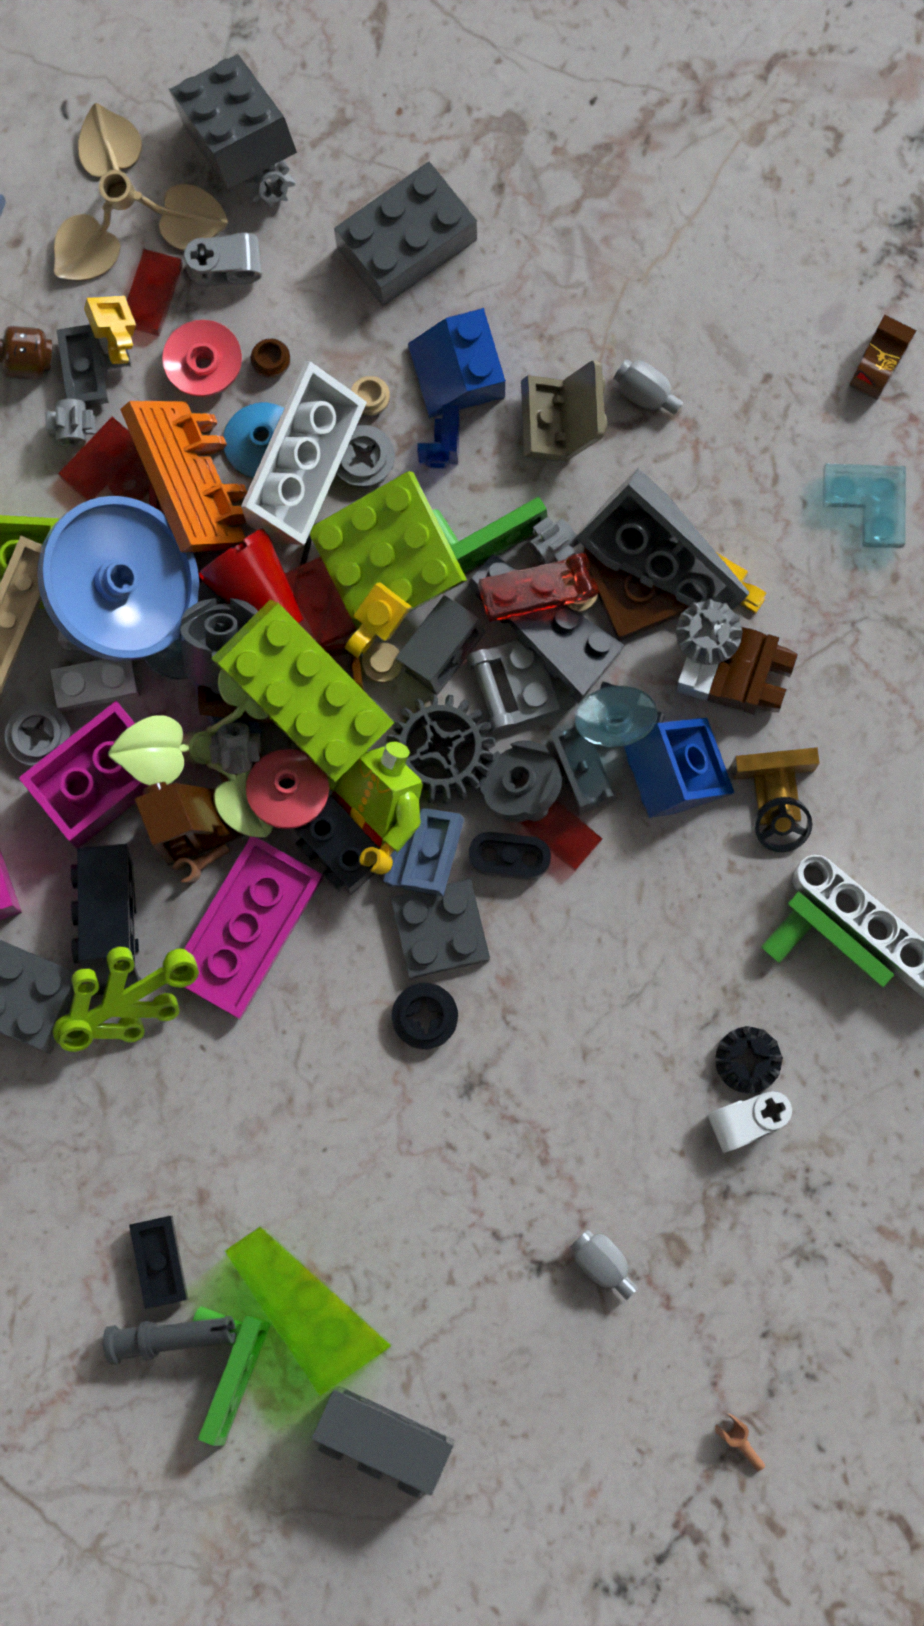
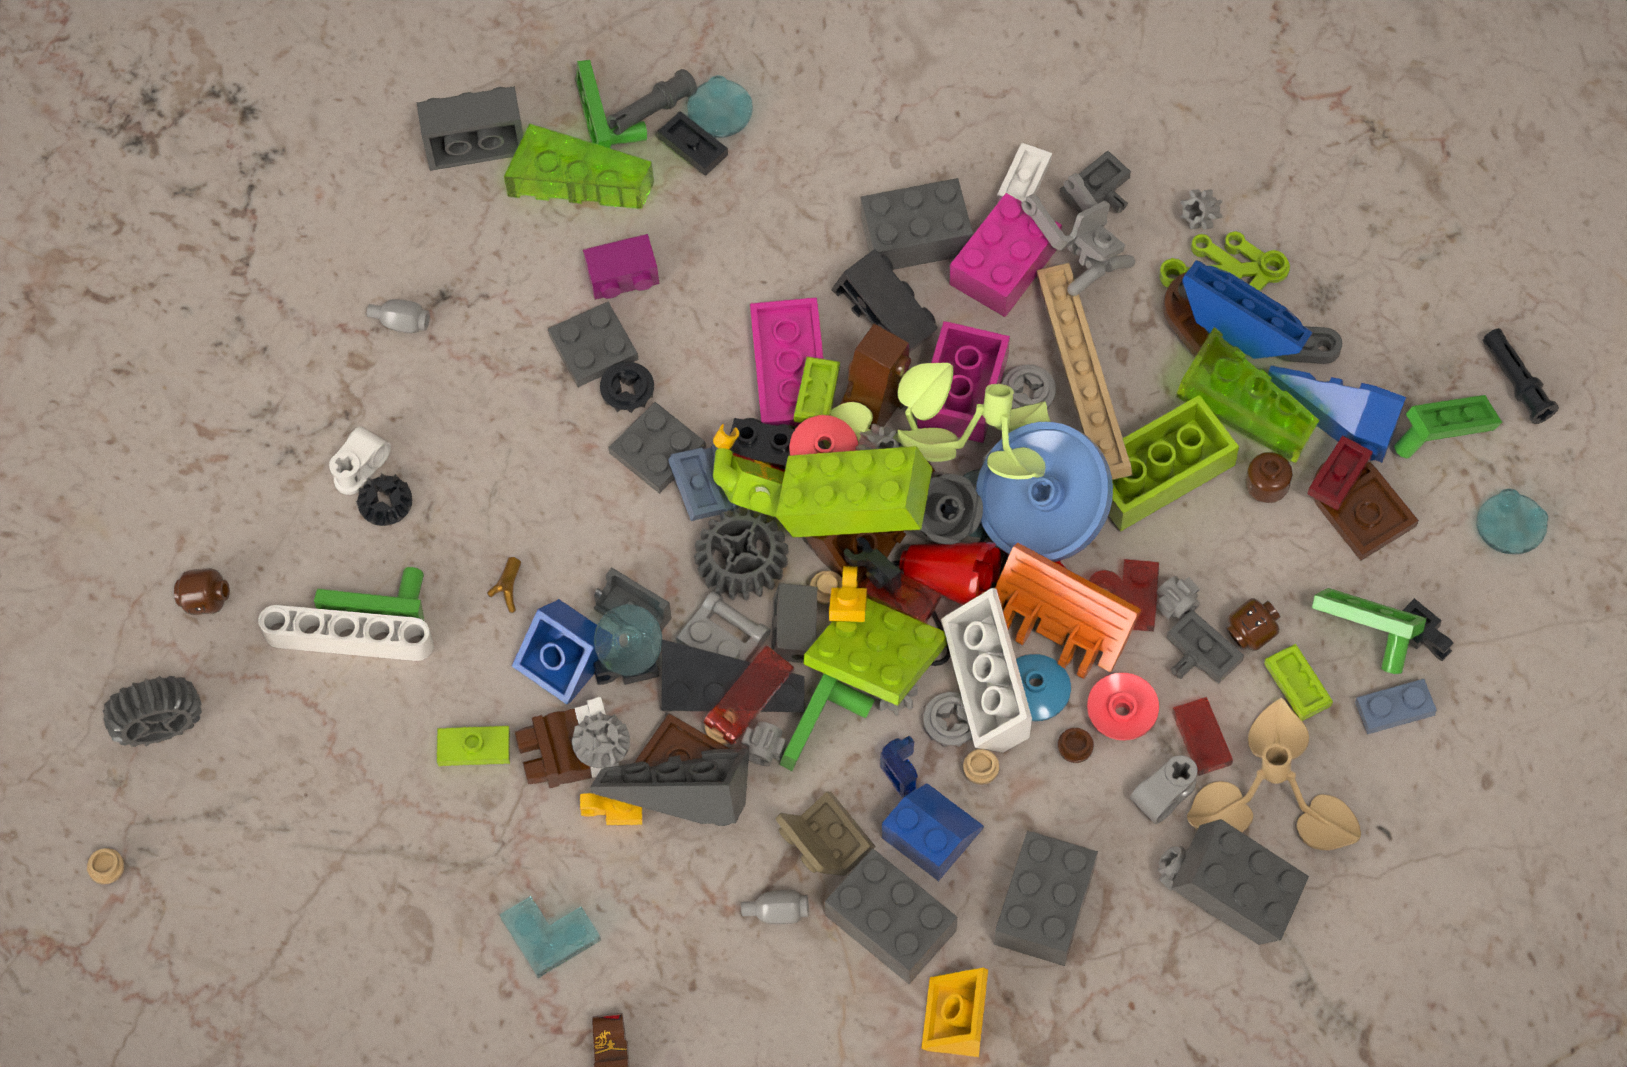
camera: 145 degrees right, 15 degrees down
(28, 278) = (1298, 682): none -> lime plate
(78, 686) = (1019, 463): none -> yellowish green plant
(80, 1027) = (849, 224): lime plant -> none
(98, 1288) = (720, 107): none -> clear light blue dish
(112, 320) = (1206, 681): yellow plate -> none
(246, 861) = (817, 388): none -> lime plate
(328, 622) = (879, 568): none -> black plate
(338, 1157) = (621, 267): none -> magenta brick
(425, 1093) = (592, 343): none -> dark grey plate
(509, 850) = (640, 518): black plate -> none
(532, 799) = (651, 573): dark grey plate -> none
(553, 307) = (890, 916): none -> dark grey brick
(556, 190) = (955, 1012): none -> yellow slope
(564, 835) = (630, 559): clear red plate -> none
(684, 882) = (506, 582): none -> pearl gold bar
(738, 1438) = (244, 275): nougat hand -> none
(778, 792) = (478, 683): pearl gold piece -> none
(816, 727) = (473, 746): none -> lime plate

